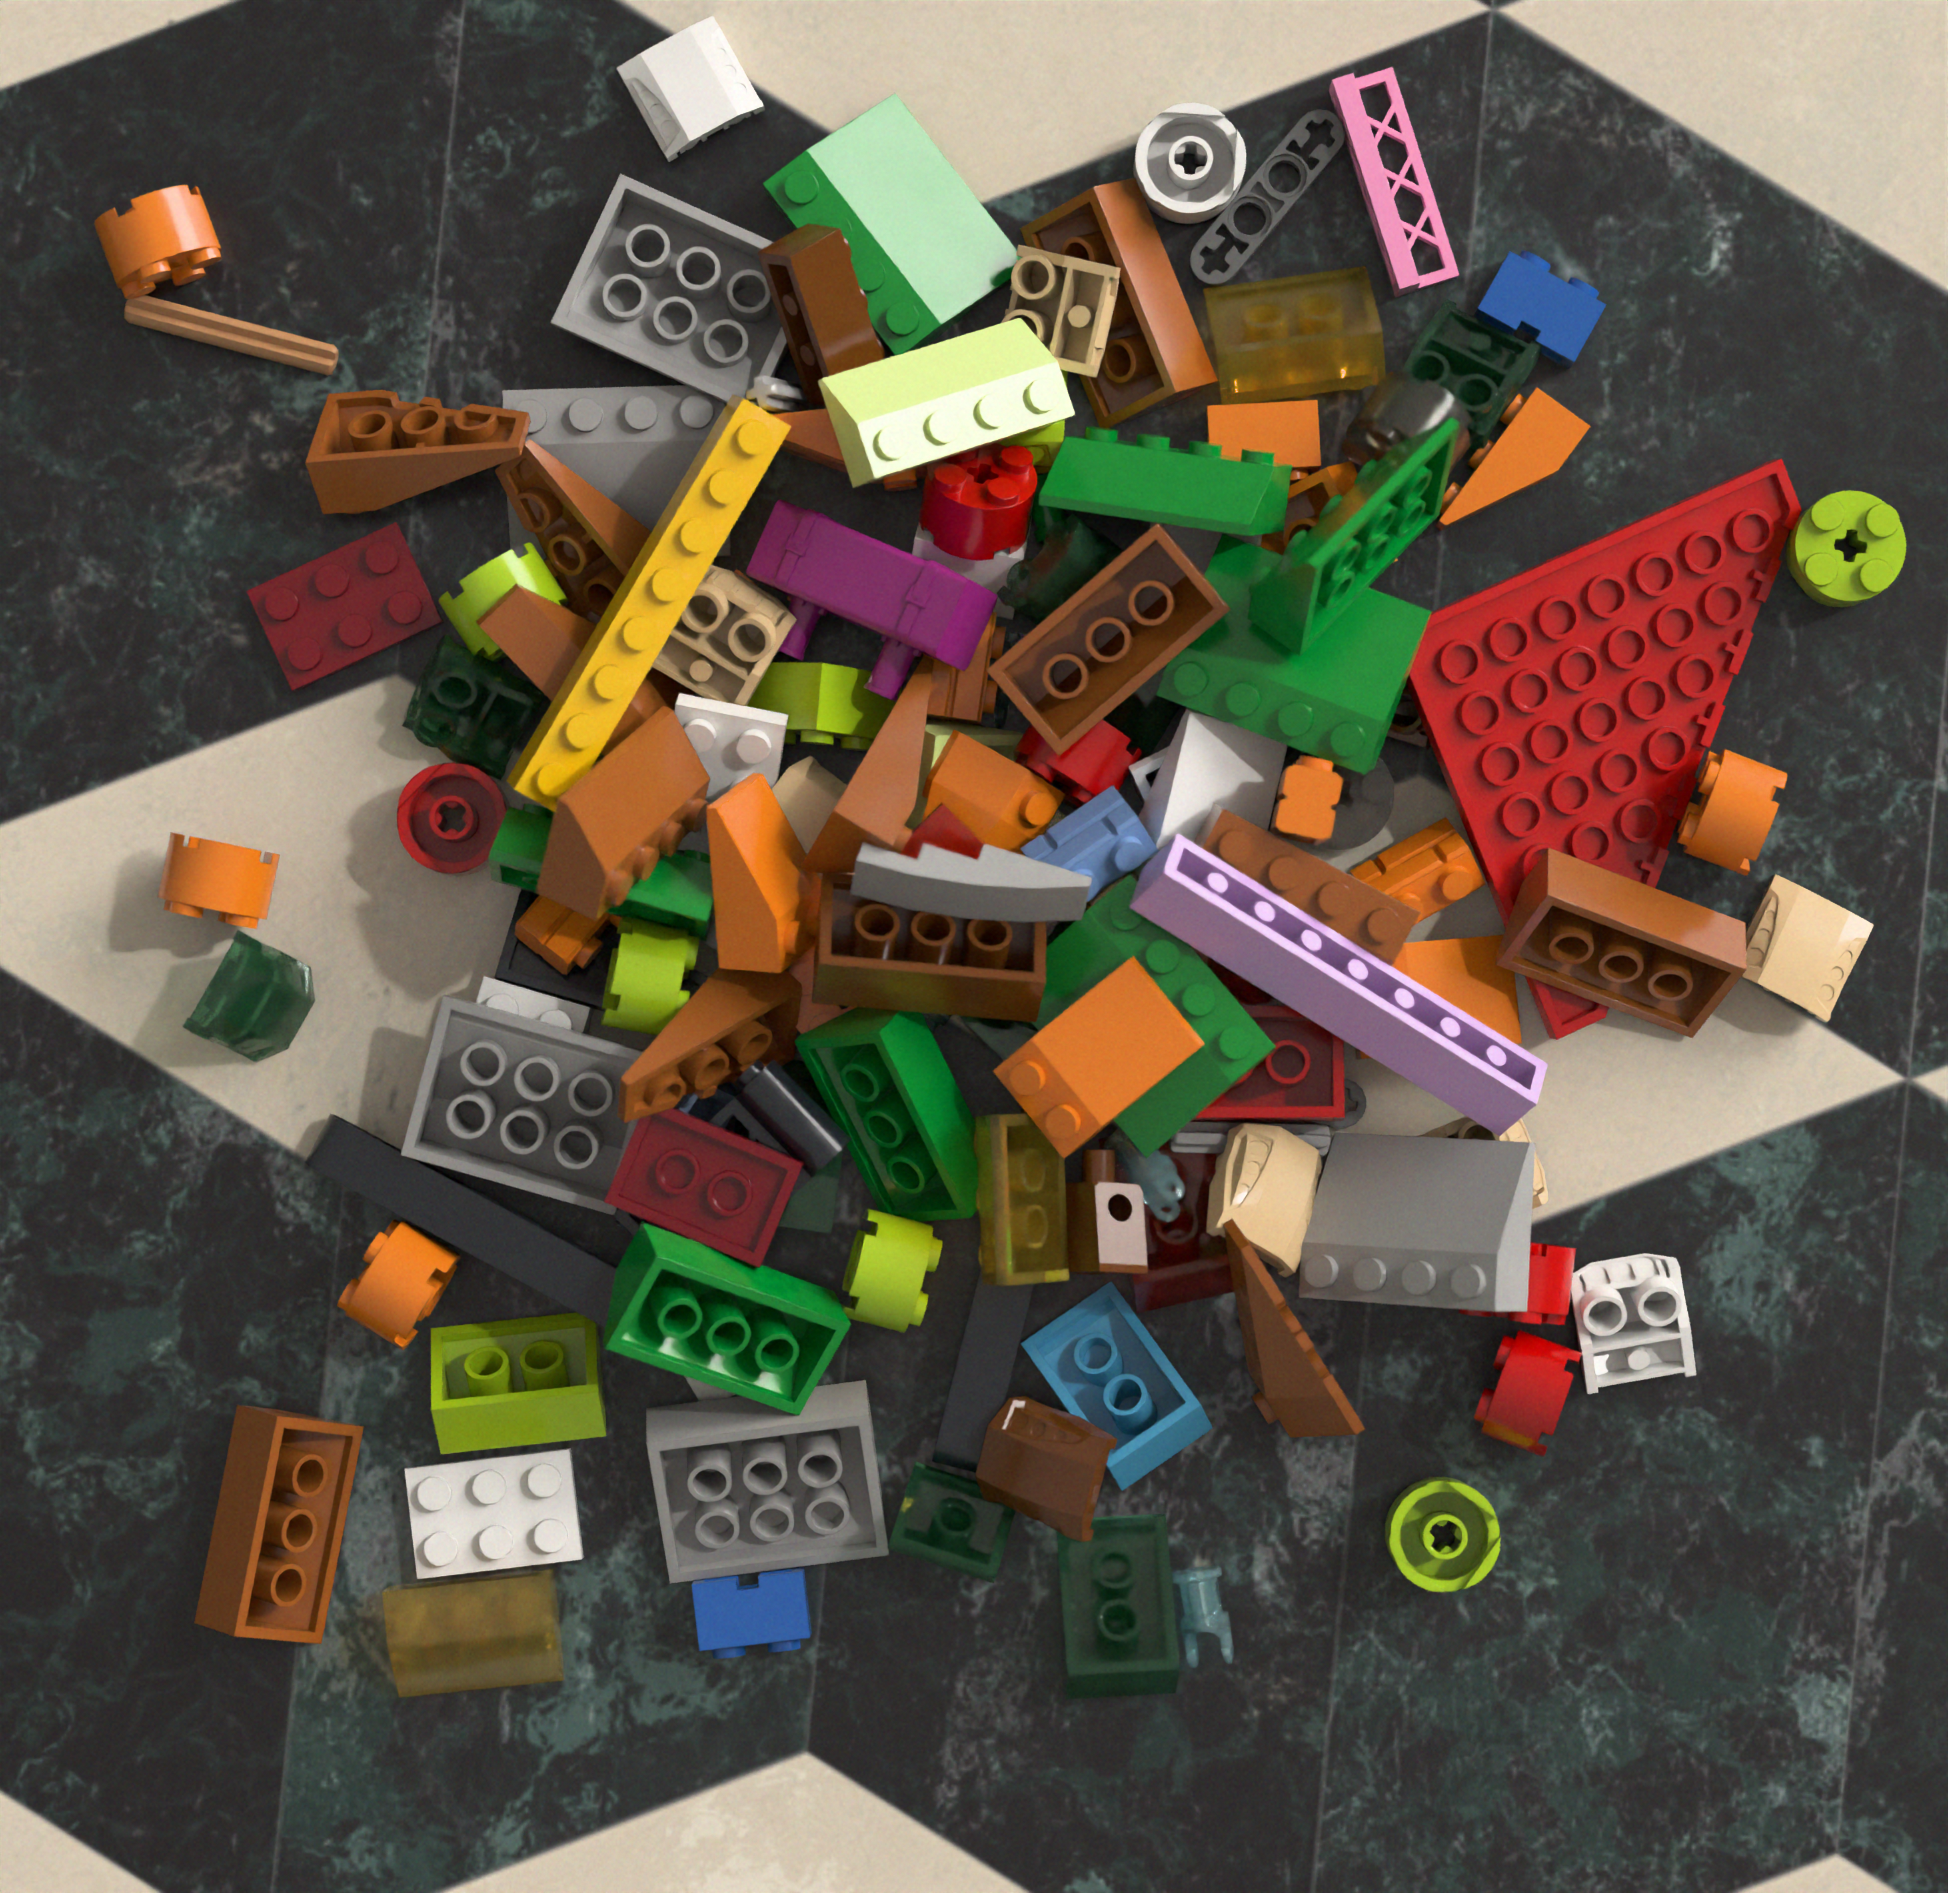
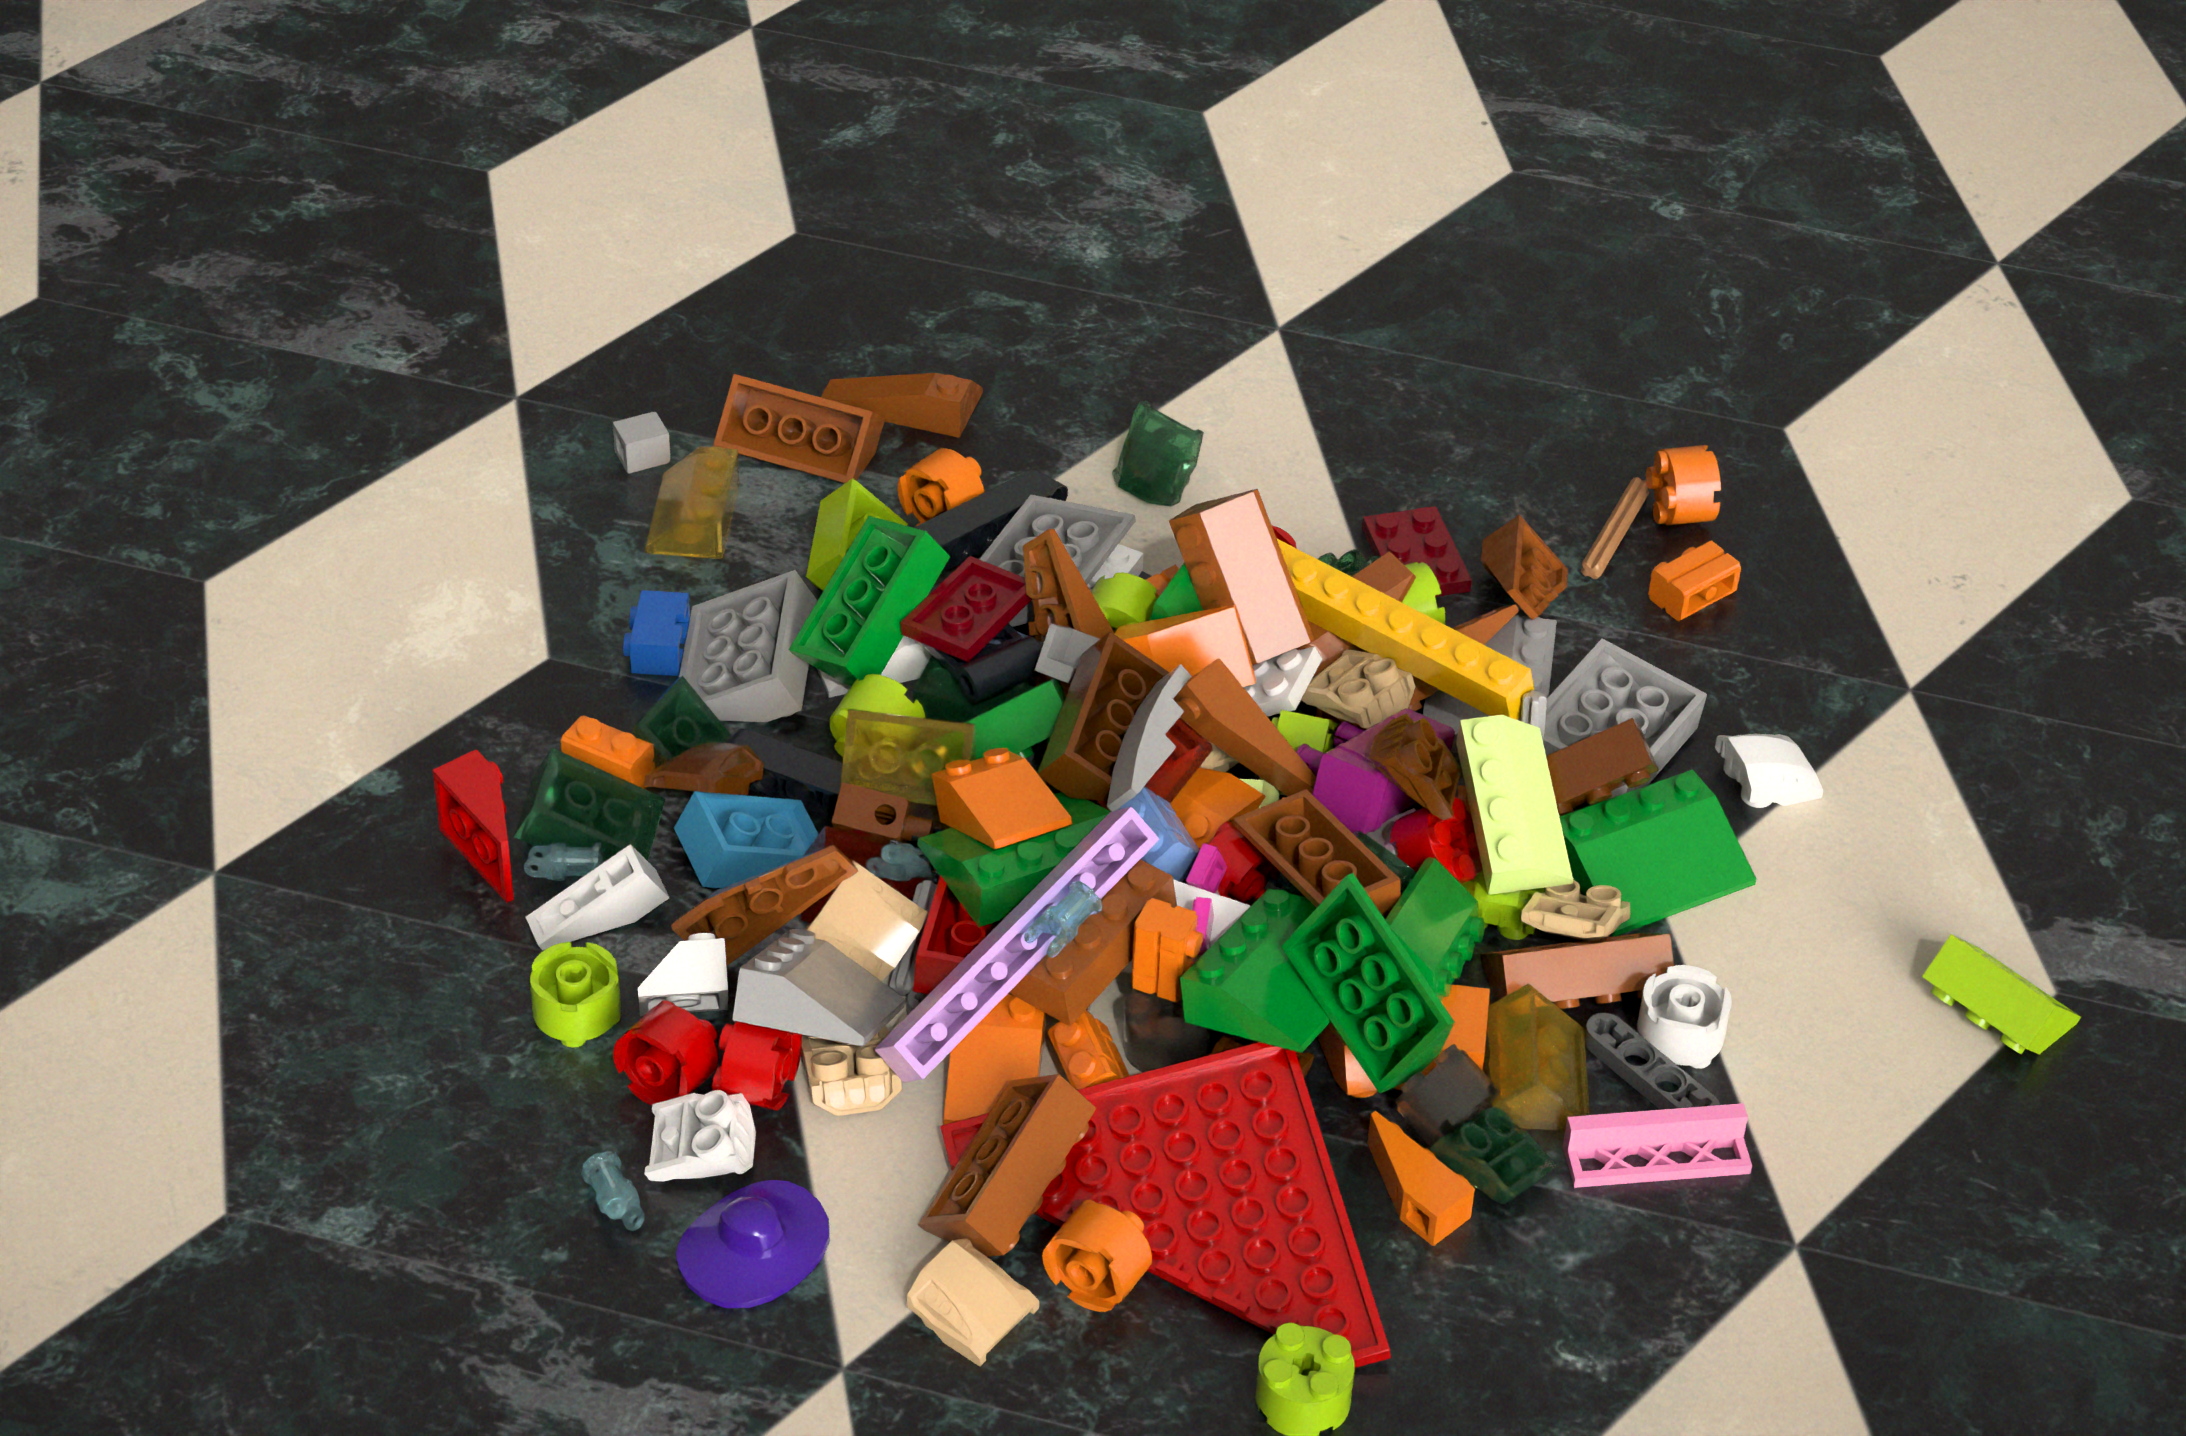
camera: 95 degrees right, 45 degrees down
(157, 1380) = (912, 400): none -> dark orange wedge
(217, 879) = (1240, 450): orange brick -> none
(336, 214) = (1694, 580): none -> orange brick
(355, 1743) = (641, 442): none -> light grey panel
(494, 1513) = (770, 532): white plate -> none
(792, 1024) = (1063, 652): none -> light grey panel
(932, 531) = (1418, 763): none -> reddish brown slope
(1013, 1611) = (609, 750): none -> orange brick
(1140, 777) = (1207, 869): none -> dark pink tile
(1179, 1739) = (474, 817): none -> red slope
(1245, 768) = (1205, 918): none -> dark pink tile
(1272, 1552) = (602, 900): none -> white slope
(1329, 923) = (1065, 917): none -> clear light blue piece
(1414, 1397) = (689, 977): none -> white slope
(1542, 306) = (1540, 1221): blue brick -> none
(1731, 1403) = (614, 1192): none -> clear light blue piece
(1756, 1224) = (754, 1244): none -> dark purple hat

